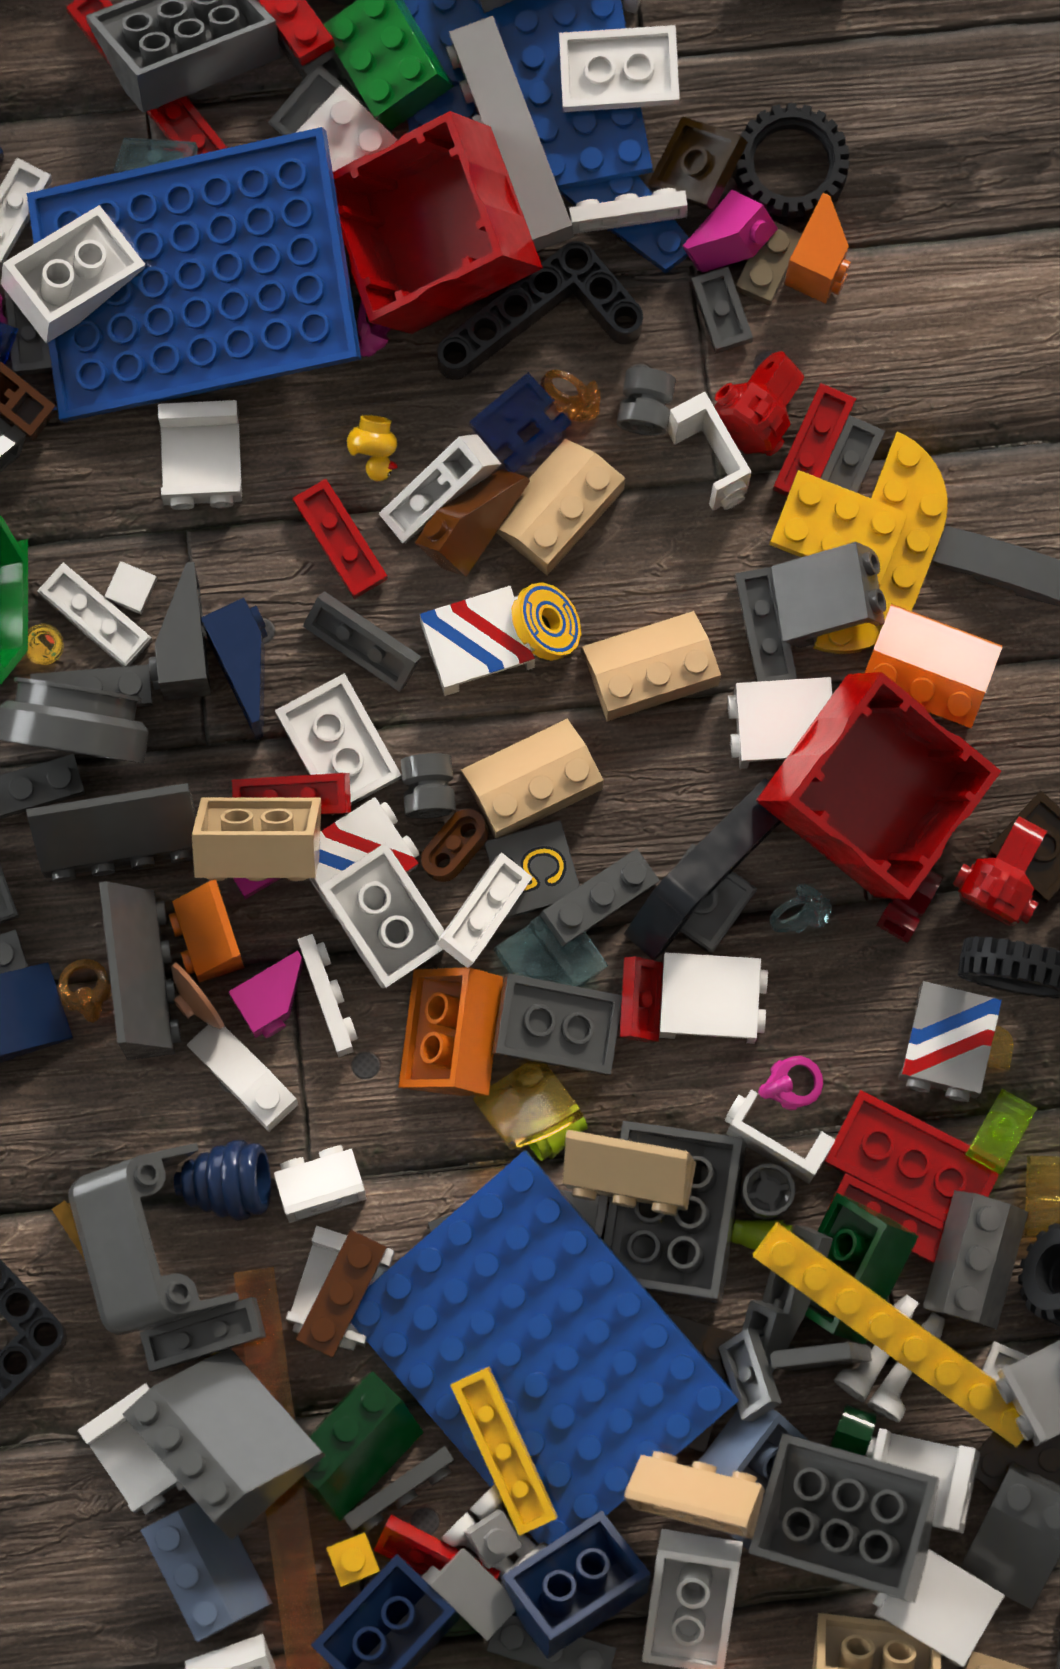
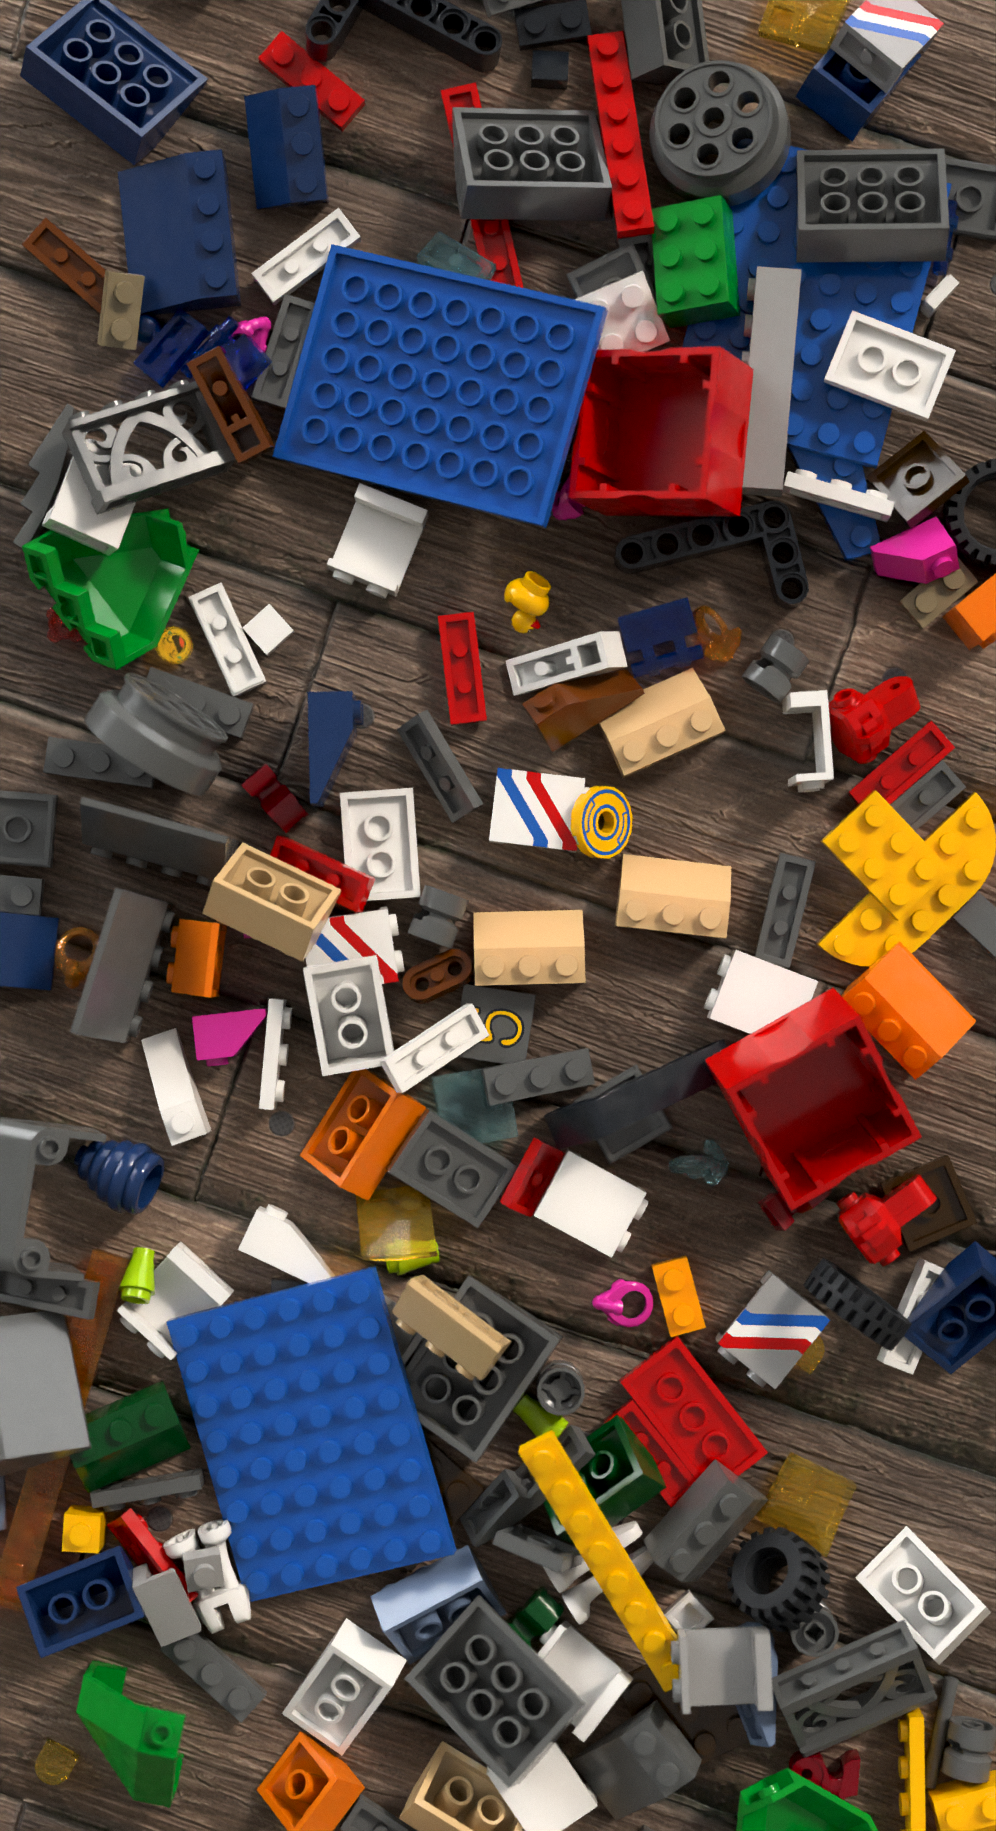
camera: 30 degrees right, 10 degrees up
(70, 273) = (335, 334): white slope -> none
(181, 645) = (284, 704): dark grey slope -> none
(192, 999) = (158, 1010): nougat dish -> none
(213, 746) = (275, 798): none -> dark red leg
(293, 1281) = (138, 1281): none -> lime cone
(319, 1184) = (195, 1210): white slope -> none
(341, 1293) = (170, 1313): reddish brown plate -> none
(421, 1180) = (283, 1245): none -> white slope
(504, 1451) = (244, 1503): yellow plate -> none
(575, 1584) = (253, 1635): dark blue slope -> none
(695, 1494) = (379, 1622): tan slope -> none
(721, 310) = (877, 616): dark grey plate -> none
(749, 1374) = (473, 1535): dark grey plate -> none
(773, 1151) = (607, 1381): white panel -> none
(828, 593) = (850, 909): panel -> none
(842, 1052) = (678, 1296): none -> light orange plate
(1001, 1131) = (777, 1425): clear neon green plate -> none

